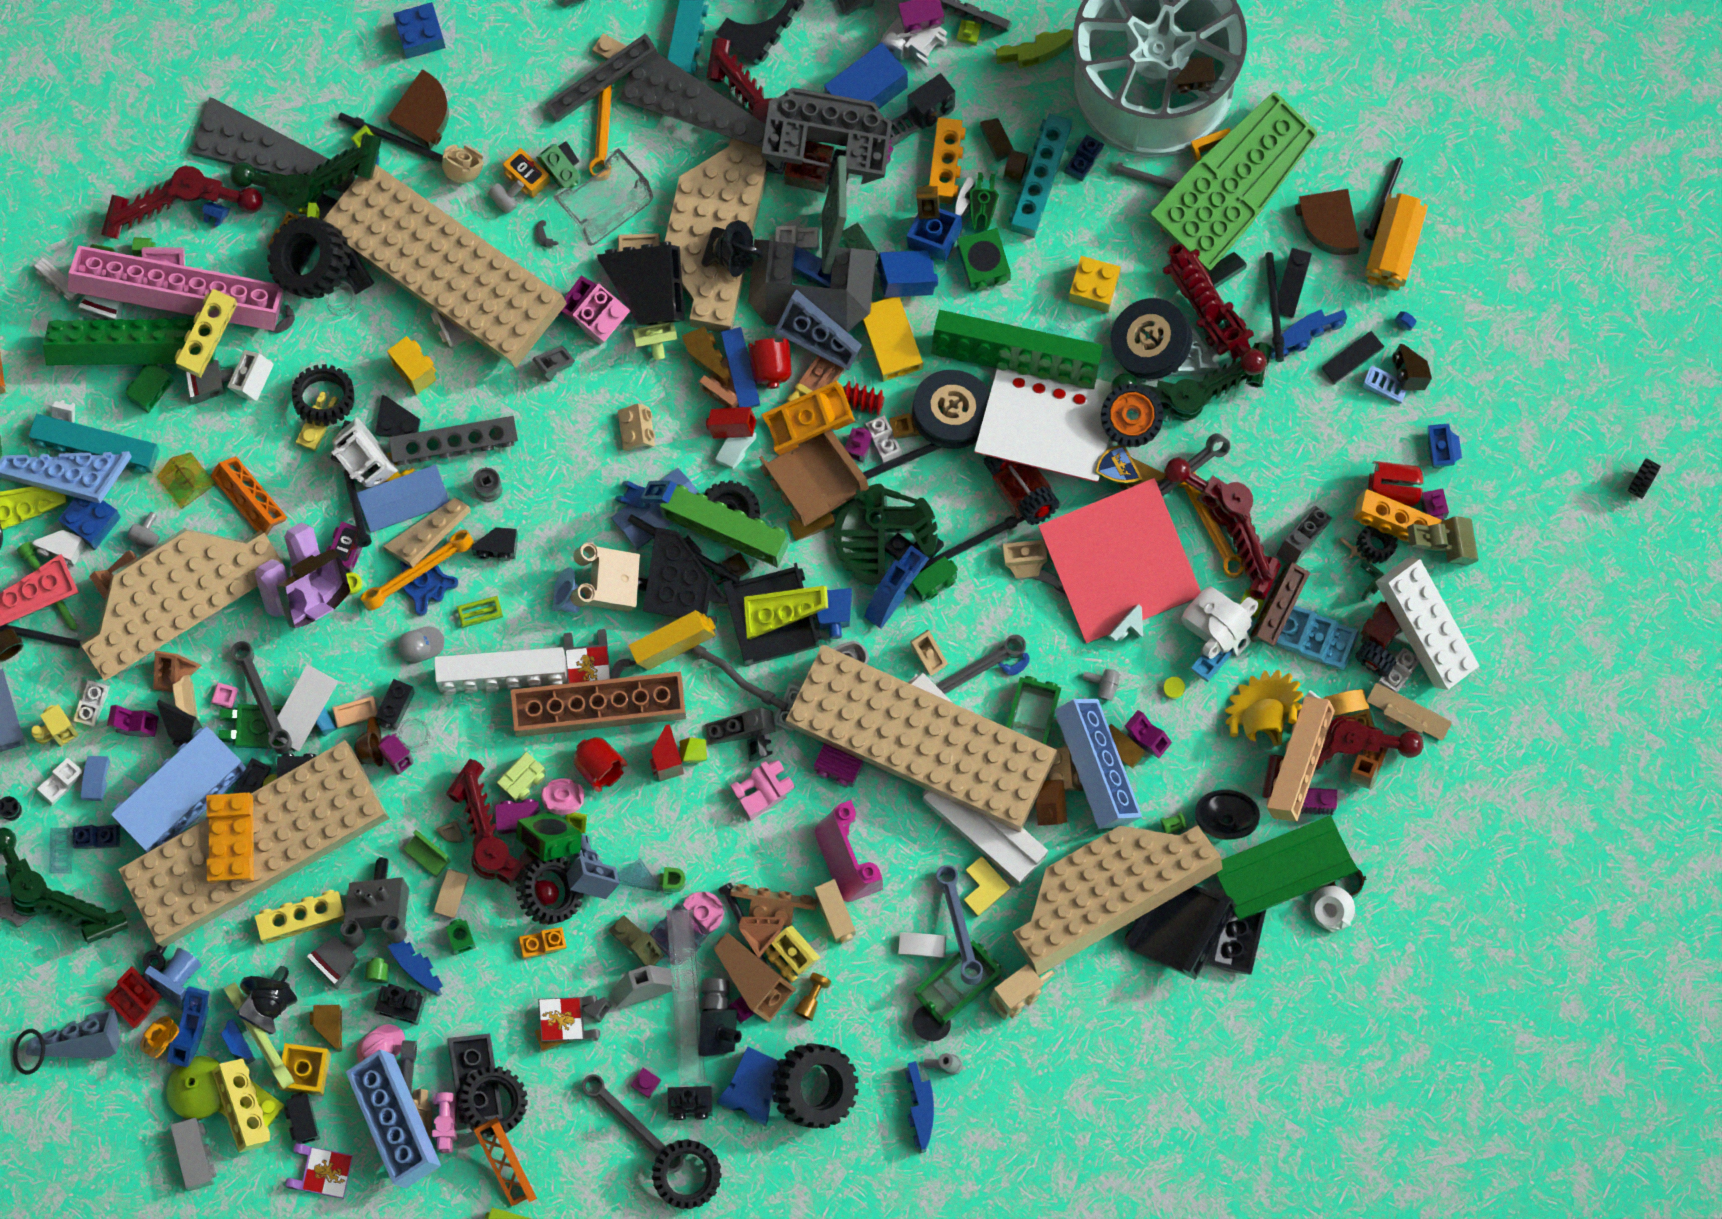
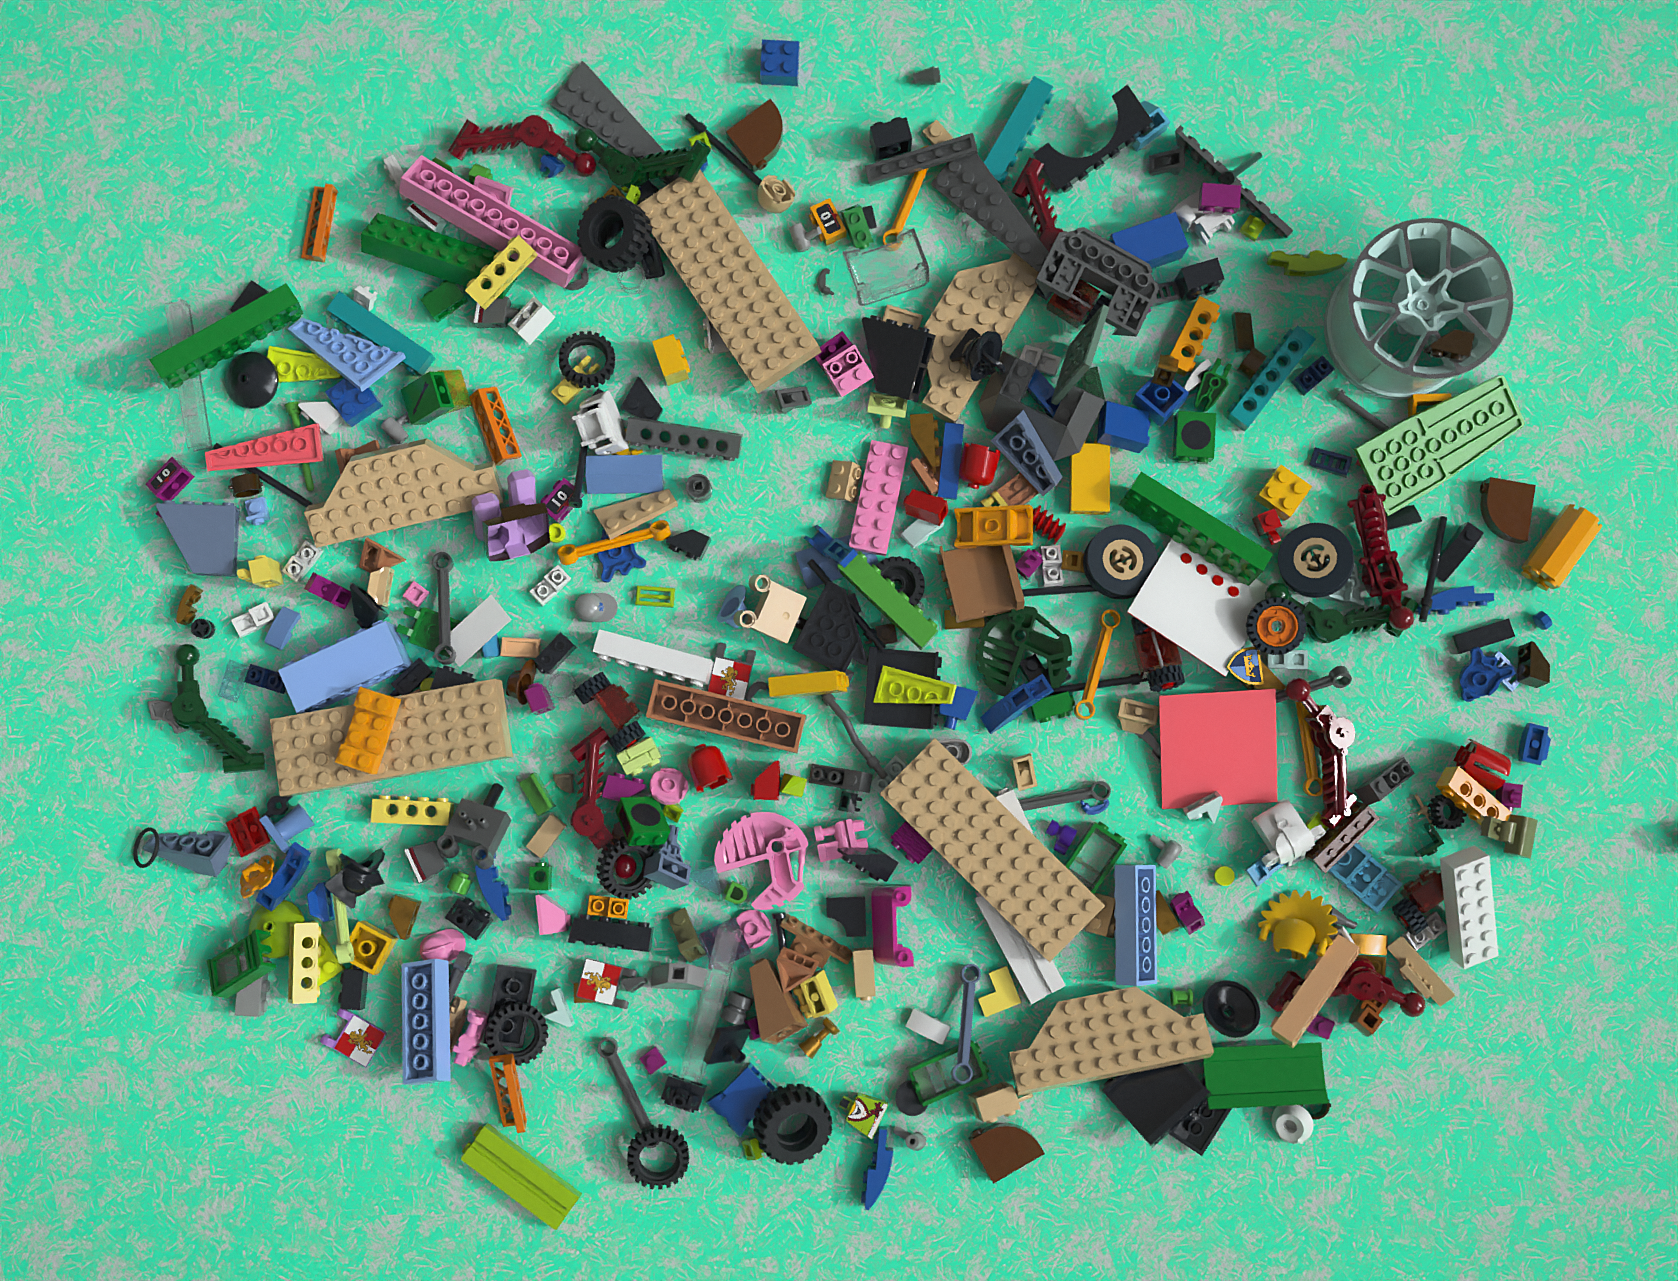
camera: 20 degrees right, 10 degrees up
(24, 669) = (257, 511): none -> light blue bracket
(168, 490) = (427, 398): none -> green brick
(175, 1130) = (239, 965): none -> green door
(364, 638) = (550, 585): none -> white slope
(478, 732) = (617, 707): none -> brick
(488, 969) = (551, 915): none -> bright pink slope
(533, 1067) = (563, 1013): none -> light aqua slope
(557, 967) = (611, 933): none -> black wedge
(562, 67) = (890, 138): none -> black brick
(671, 820) = (752, 842): none -> bright pink piece
(678, 429) = (878, 498): none -> bright pink plate
(782, 1133) = (752, 1149): none -> lime tile
(799, 861) = (849, 912): none -> black tile
(809, 797) = (870, 859): none -> black slope
(886, 1055) = (864, 1112): none -> torso
(965, 518) = (1097, 664): none -> light orange piece
(993, 702) = (1064, 836): none -> dark purple piece
(1045, 1039) = (1004, 1148): none -> reddish brown brick
(1051, 803) = (1083, 945): reddish brown slope -> none
(1091, 320) = (1267, 524): none -> red brick
(1142, 230) = (1339, 457): none -> dark blue slope
(1161, 449) = (1292, 660): none -> light aqua slope
(1305, 687) = (1341, 919): none -> dark grey cone
(1363, 396) = (1481, 675): none -> blue tile
(1371, 232) = (1540, 530): black bar -> none

